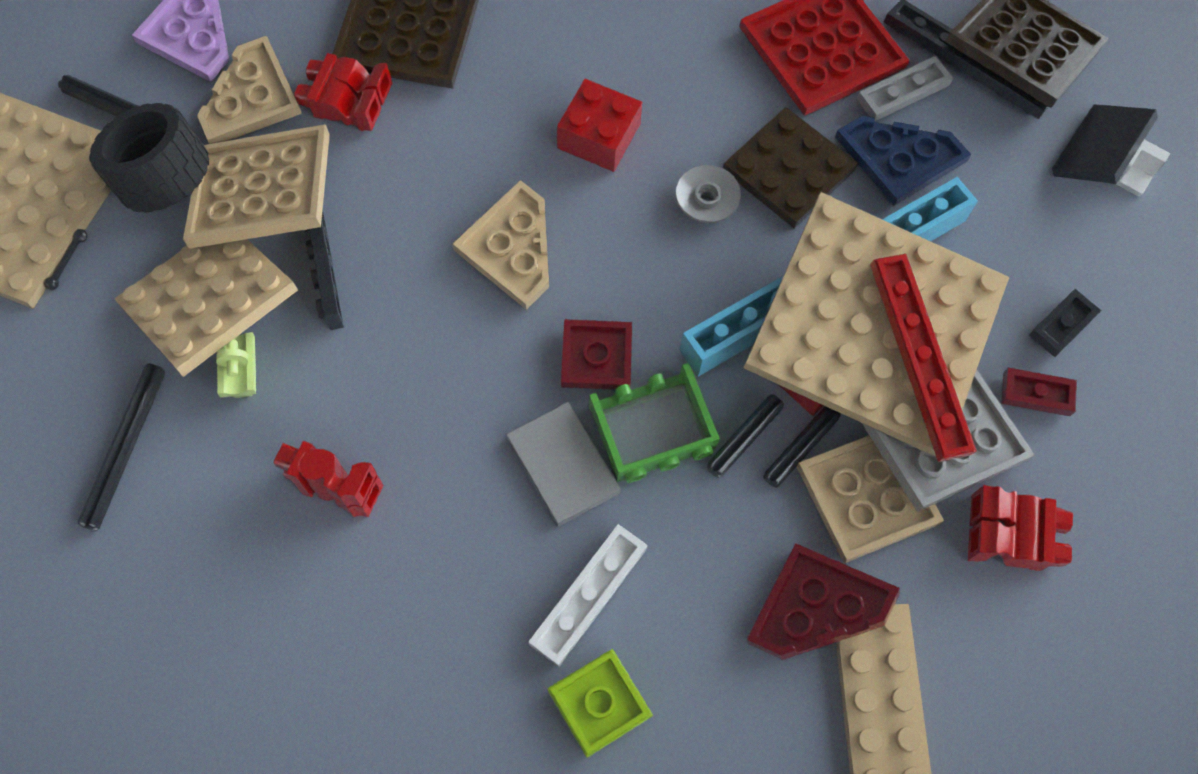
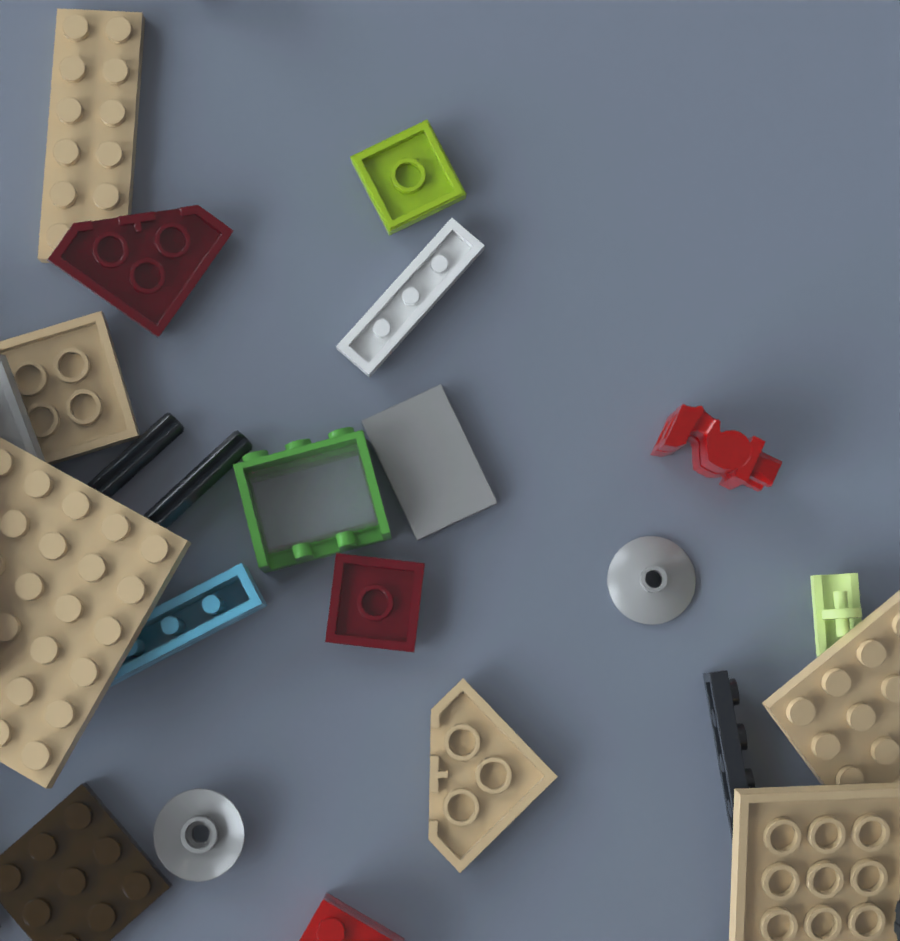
camera: 175 degrees left, 15 degrees up
(386, 403) = (628, 583): none -> light grey dish

